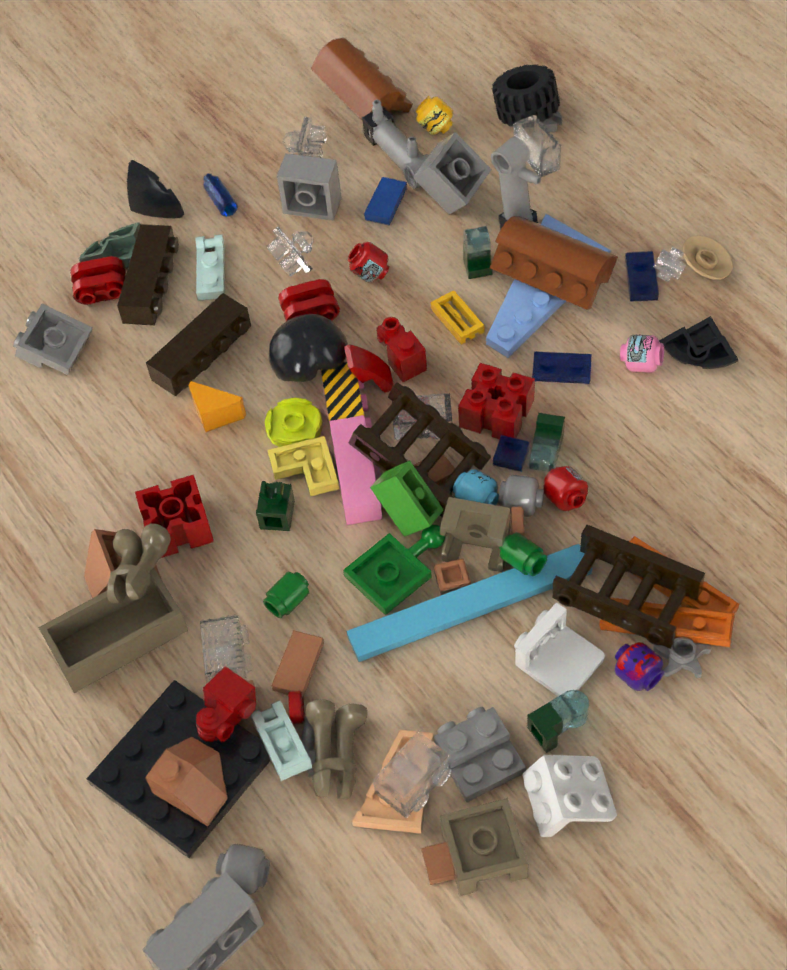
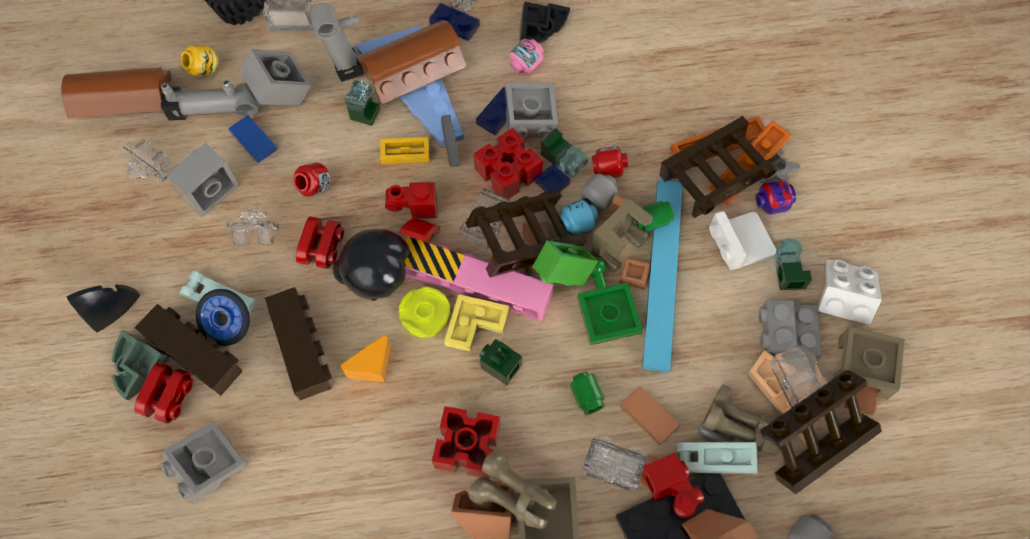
camera: 65 degrees left, 10 degrees up
(195, 264) = (236, 311): none -> wheel
(219, 195) = (144, 253): clear blue cylinder -> none
(296, 707) = (691, 433): red tile -> none
(336, 838) = (832, 448): none -> dark brown fence
(485, 340) = (450, 140): none -> dark grey tile
(575, 386) = (531, 108): none -> light grey plate

